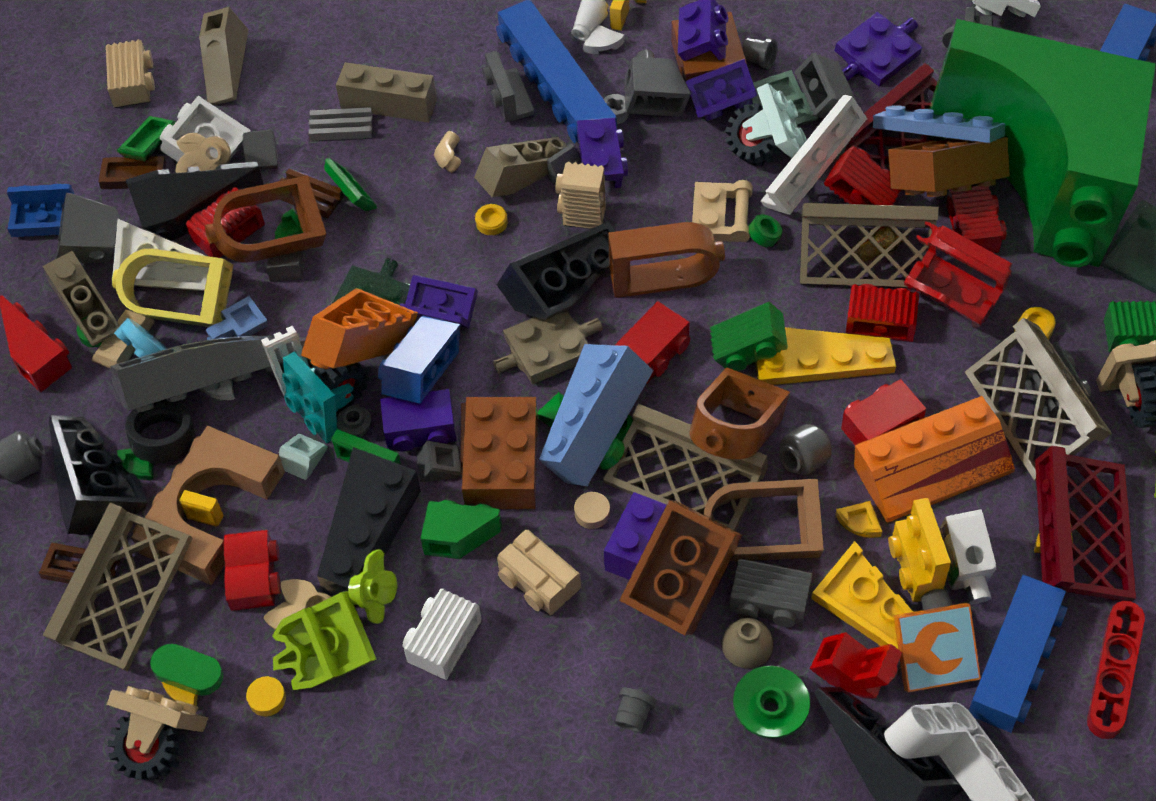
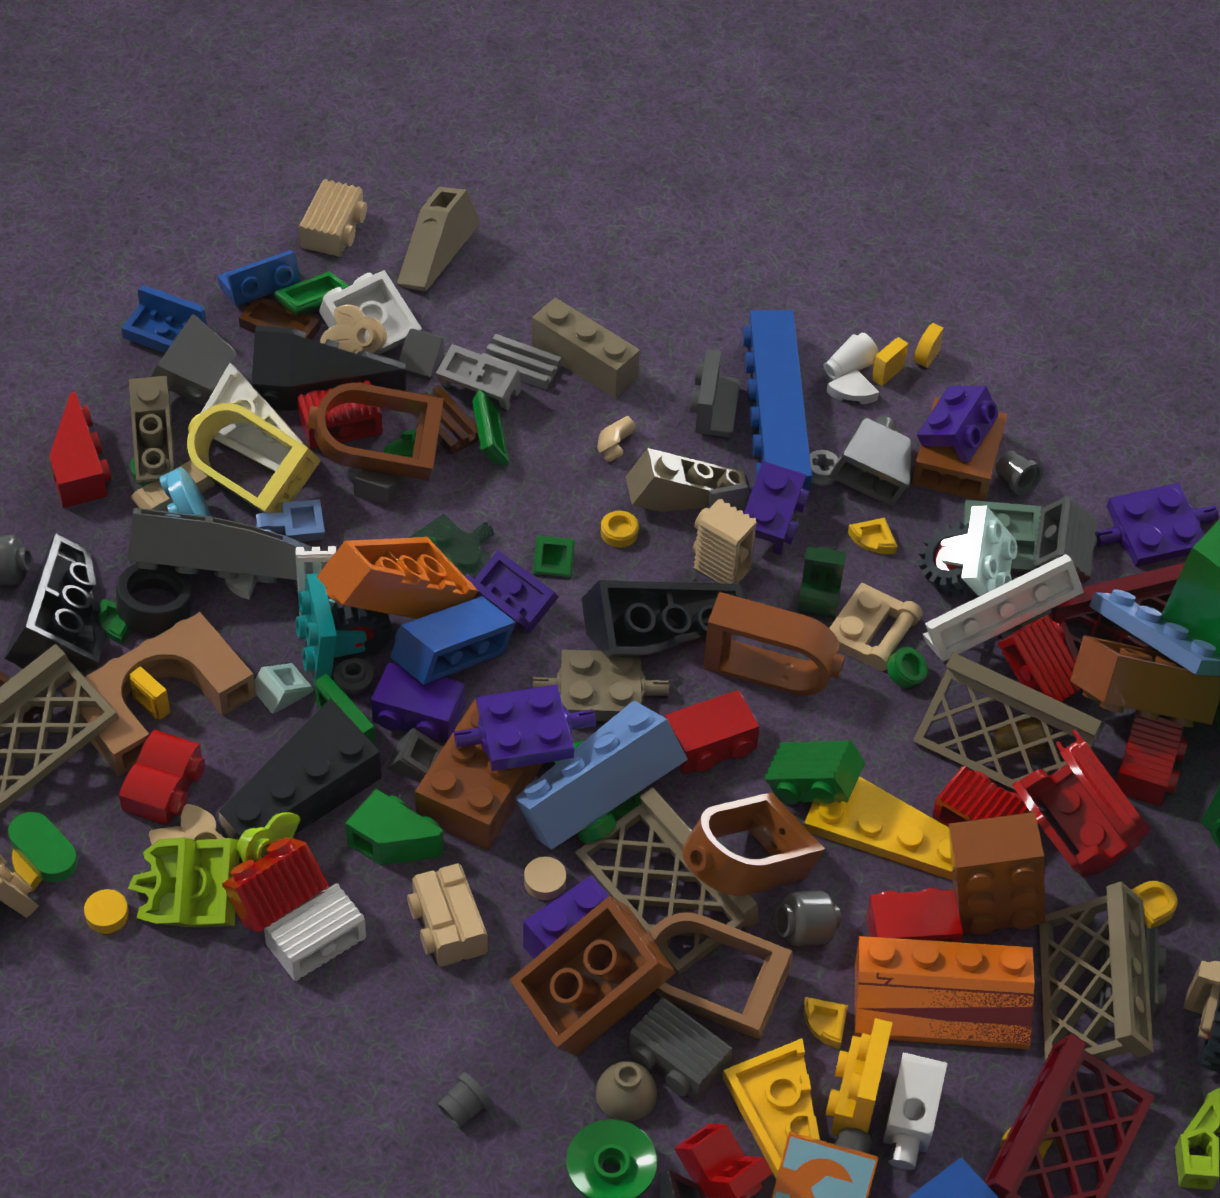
camera: 20 degrees right, 5 degrees down
(98, 143) = (260, 278): none -> blue bracket
(317, 146) = (480, 373): none -> light grey hinge
(395, 612) = (274, 883): none -> red brick
(454, 261) = (554, 556): none -> green slope
(521, 401) = (524, 727): none -> dark purple plate
(669, 193) = (821, 581): none -> dark green plate
(682, 142) = (874, 535): none -> yellow tile
(722, 89) = (946, 494): dark purple bracket -> none
(932, 350) = (998, 873): none -> dark orange brick

